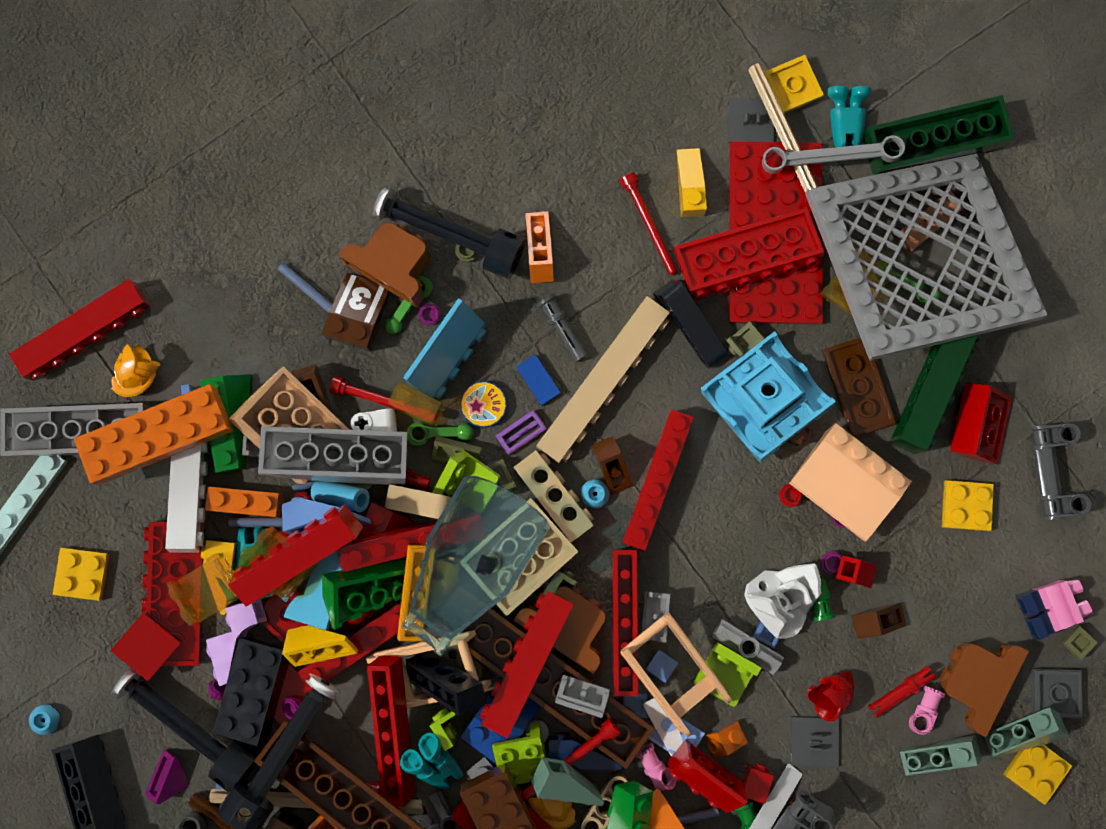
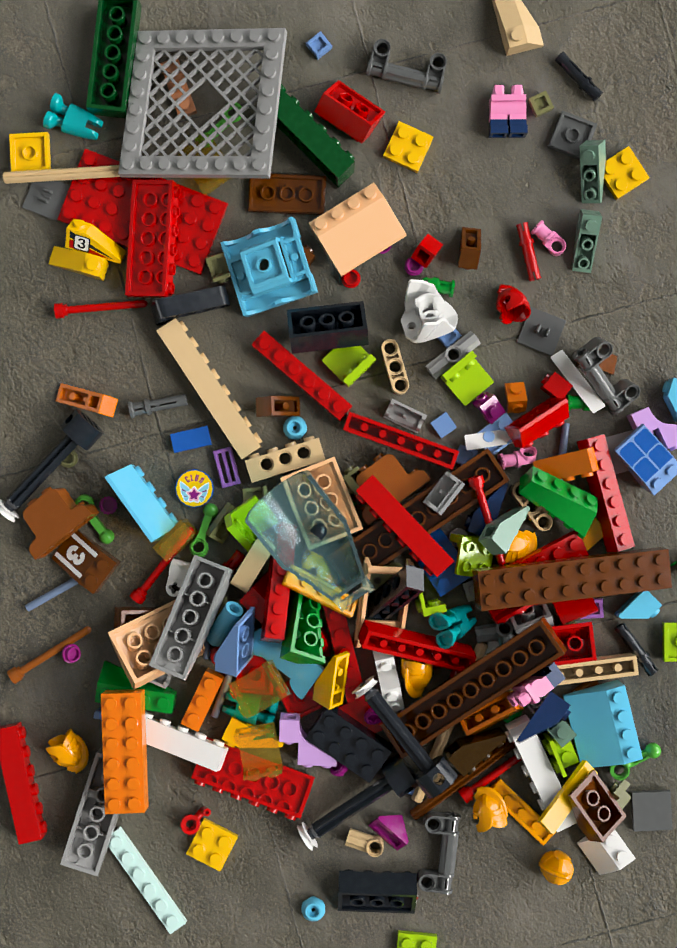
camera: 75 degrees left, 5 degrees up
(91, 546) = (203, 811): none -> red plate
(141, 750) = (362, 841): none -> tan piece
(145, 646) = (285, 812): red tile -> none
(202, 281) = (16, 673): none -> dark orange piece
(246, 334) = (71, 653): none -> magenta plate
(295, 555) = (257, 672): red brick -> none
(340, 711) = (389, 680): none -> white arch
(356, 742) = (415, 676): none -> light orange helmet
(692, 696) = (473, 408): light nougat piece -> none
(695, 527) = (348, 363): none -> lime bracket
(703, 713) = (489, 406): none -> magenta bracket
(718, 579) = (394, 358): none -> tan beam
(721, 185) = (89, 239): none -> yellow slope
(724, 489) = (327, 327): none -> black brick
(833, 154) = (98, 143): light grey piece -> none
(981, 681) = (542, 188): dark orange brick -> none
(1042, 360) = (319, 45): none -> medium blue tile

